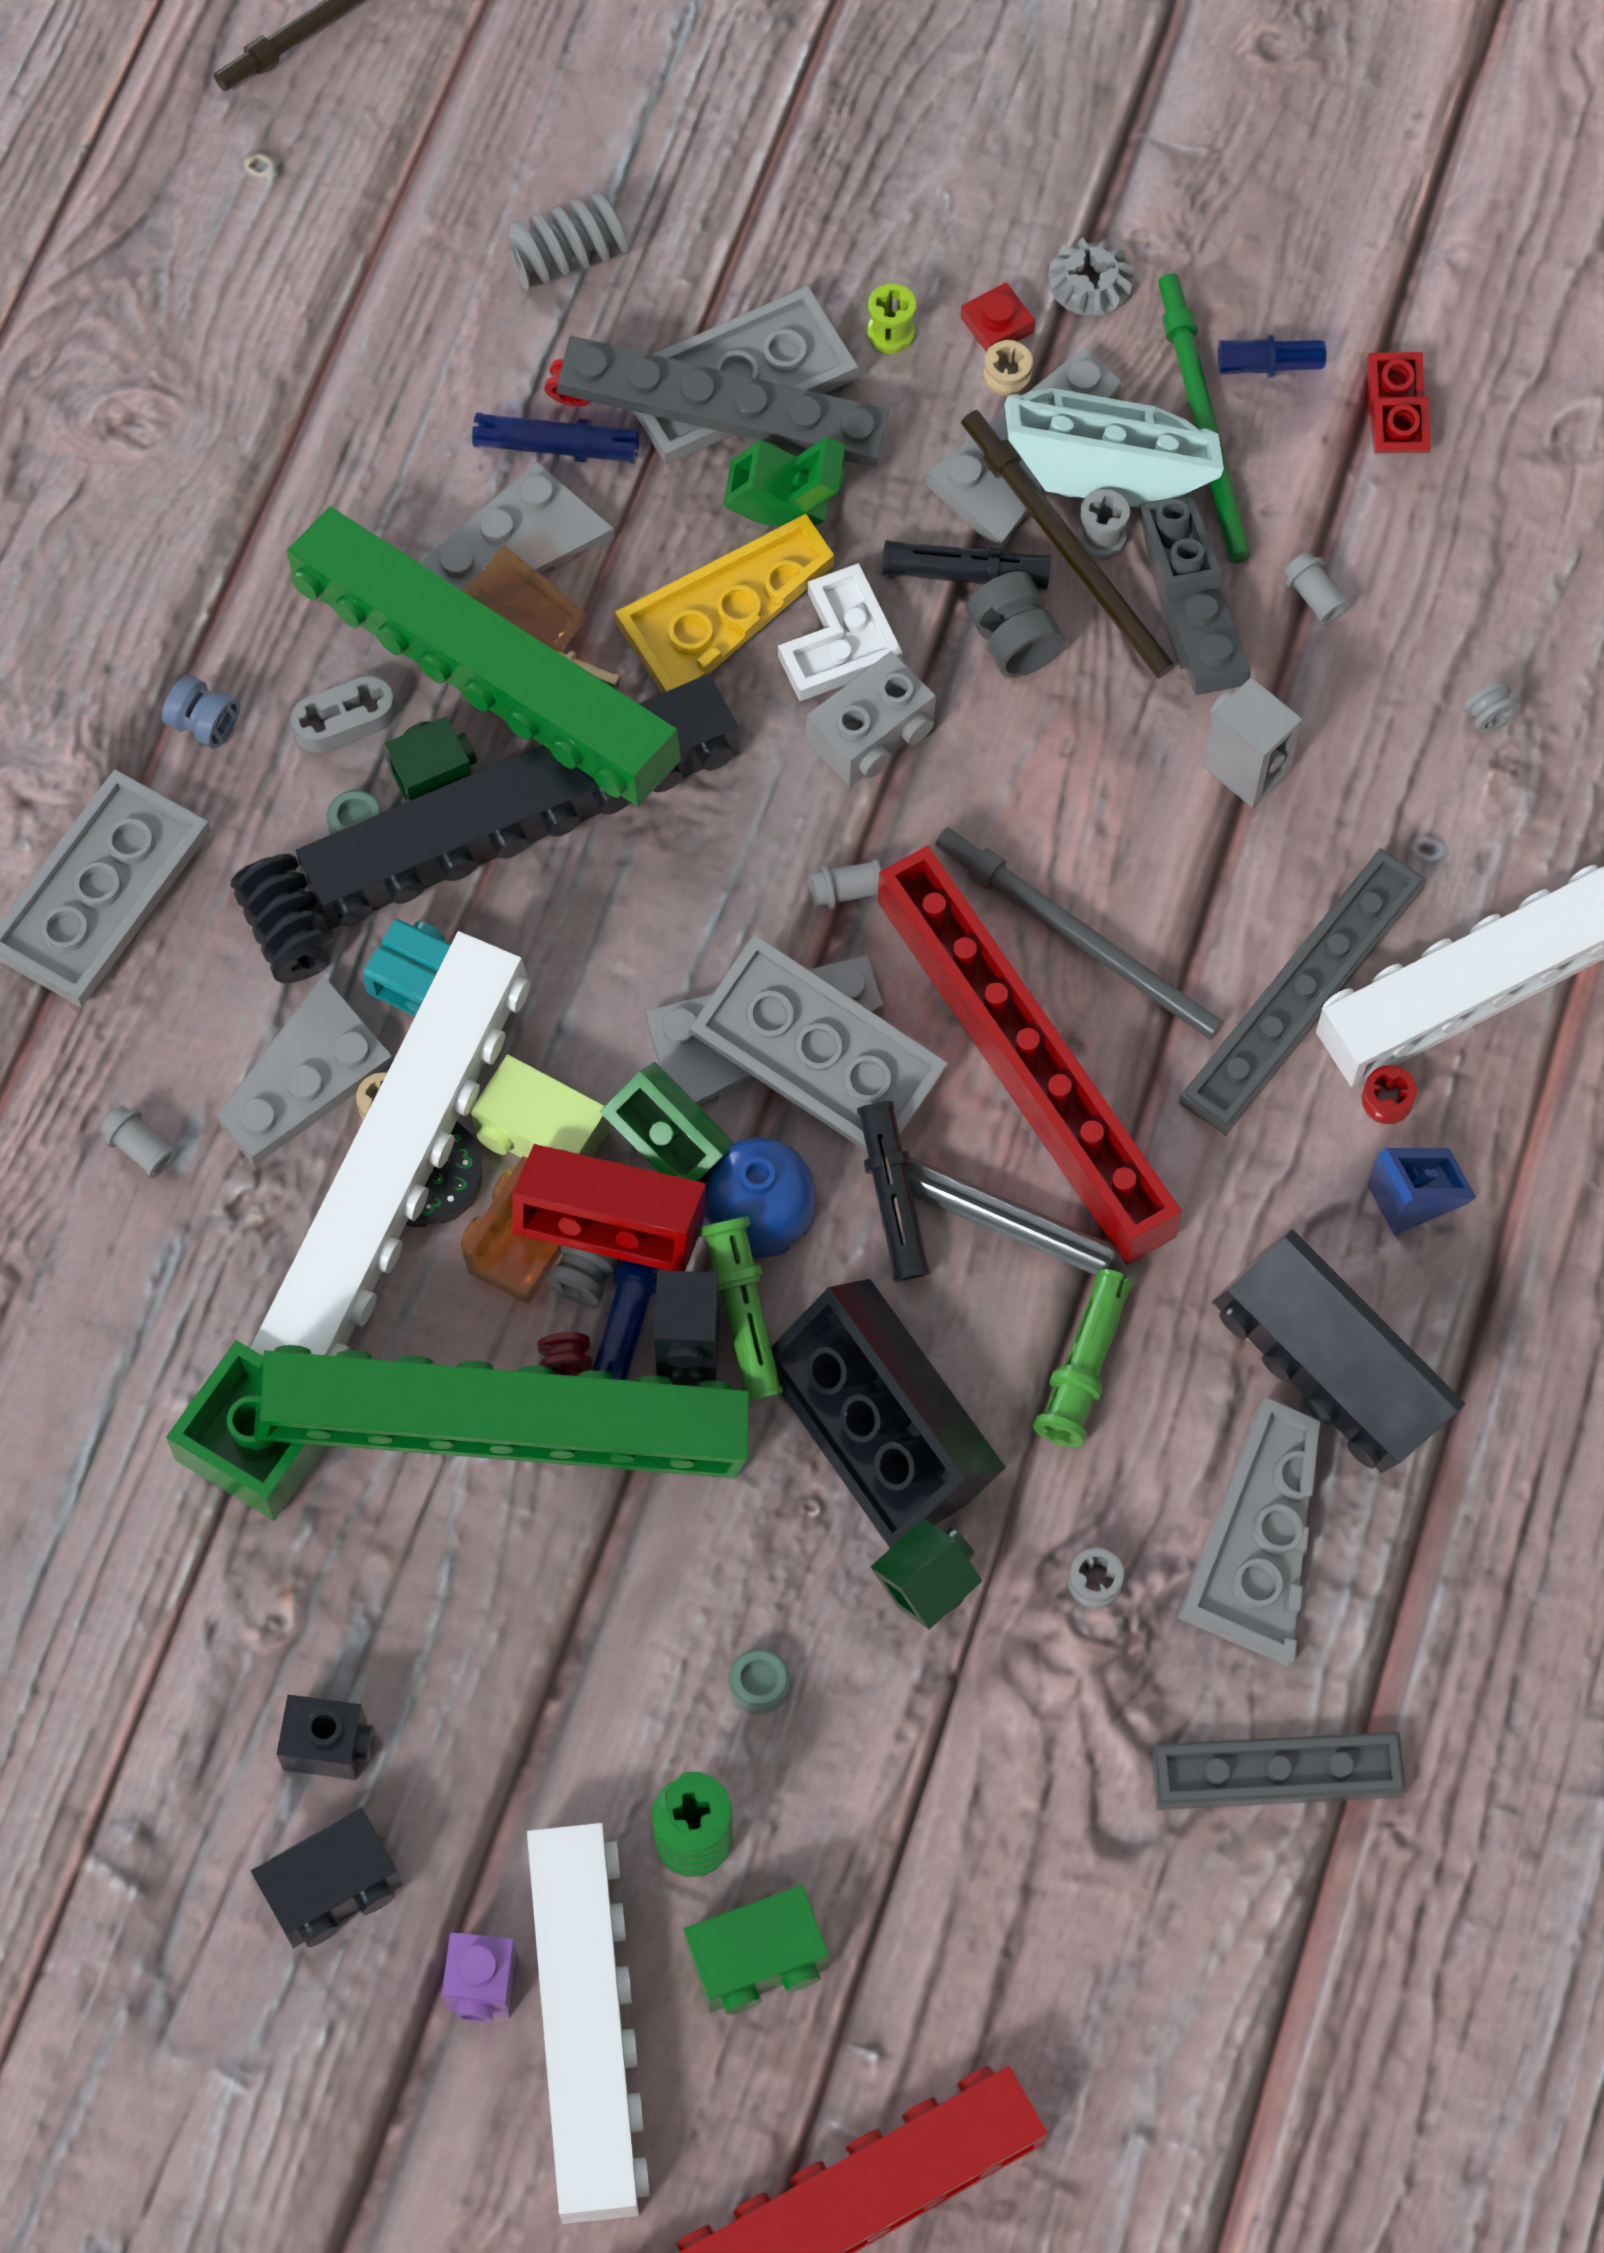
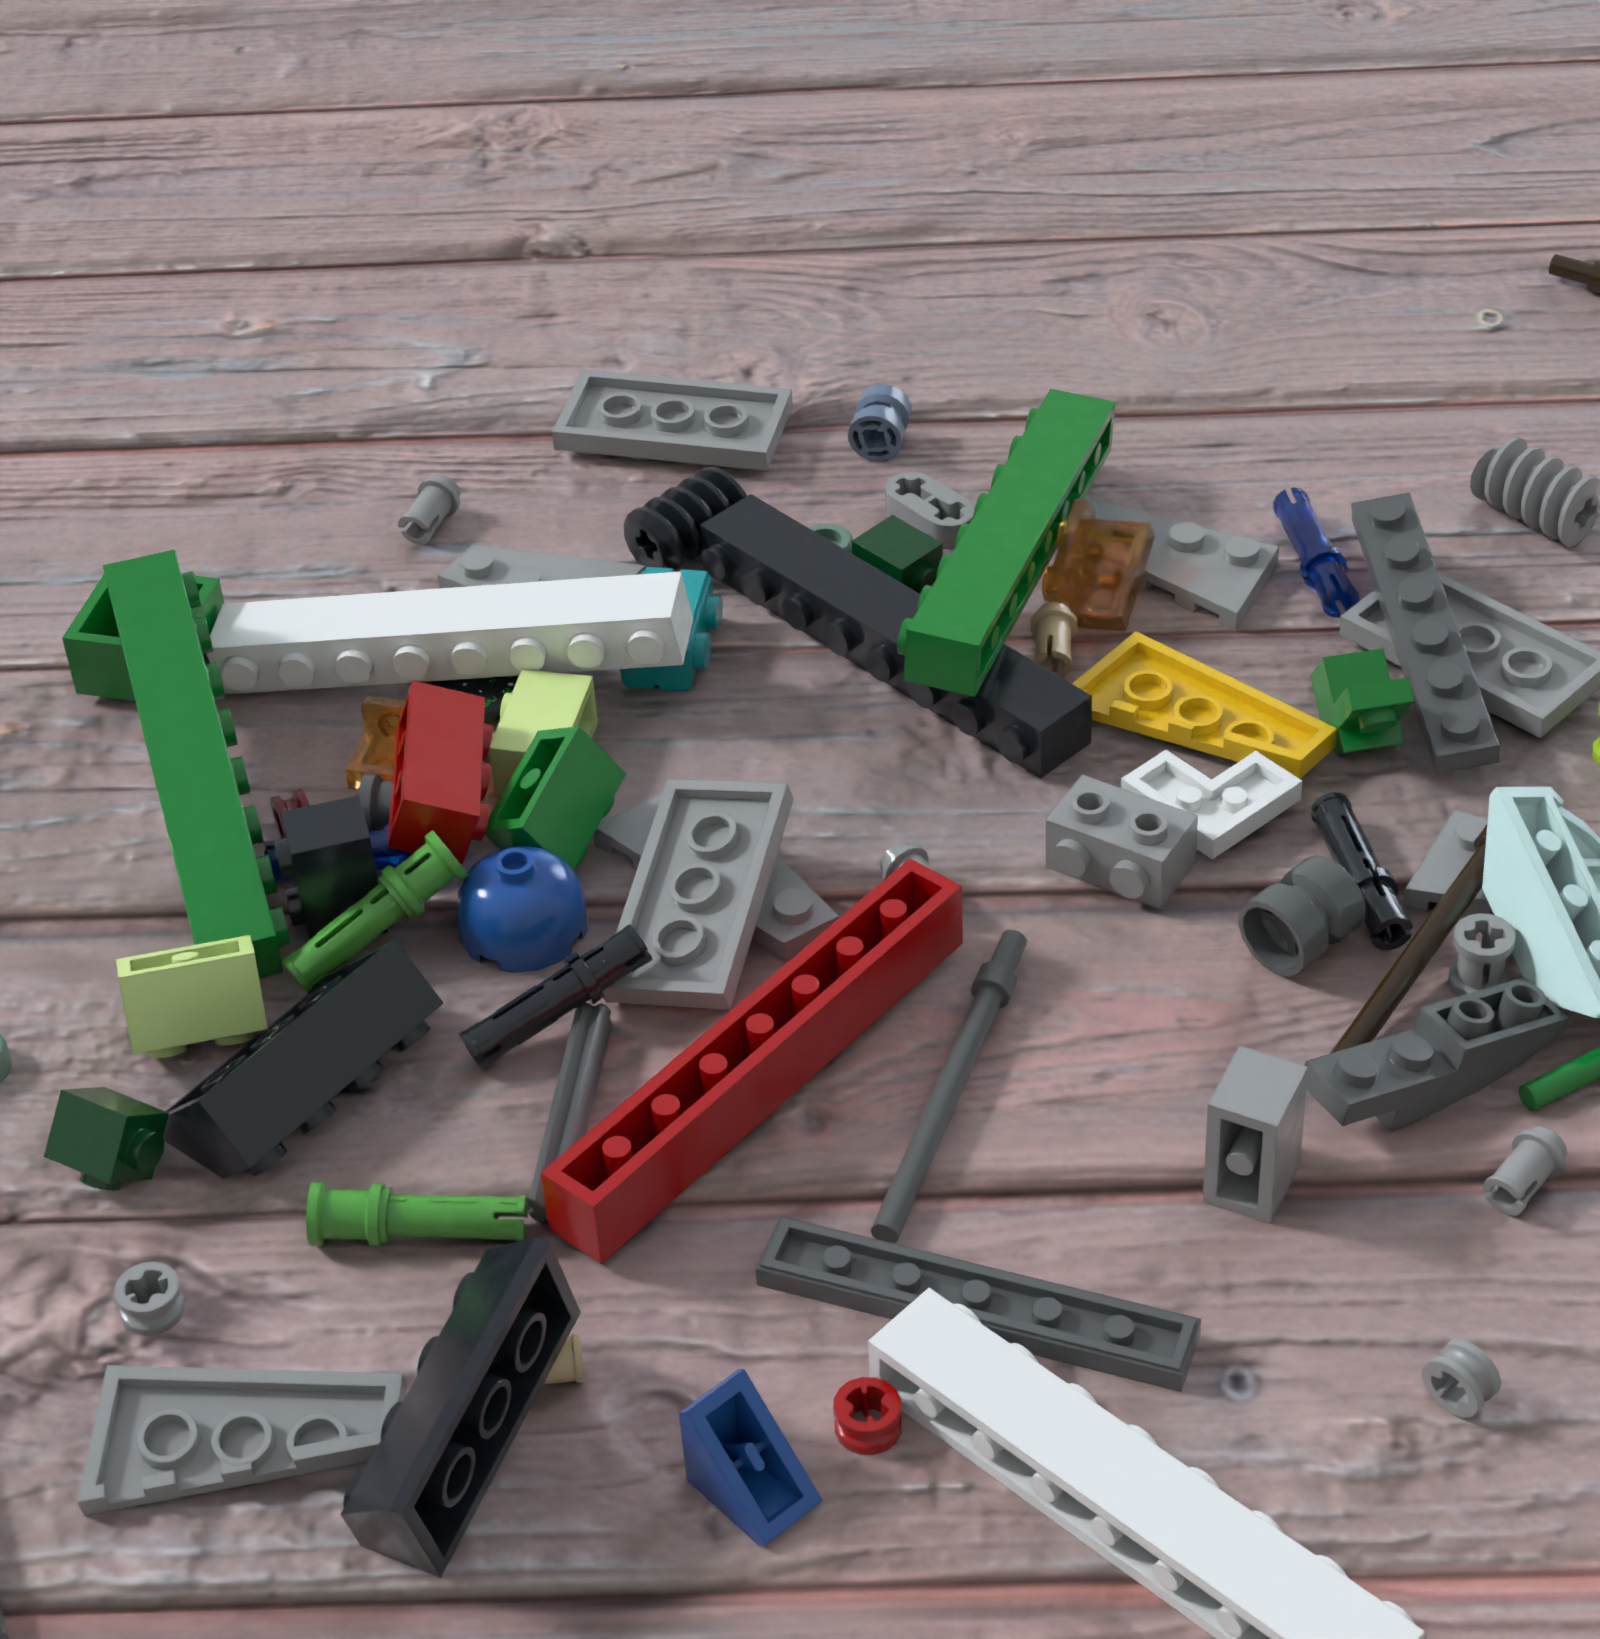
camera: 75 degrees right, 25 degrees down
(786, 1475) = (191, 996): none -> yellowish green brick

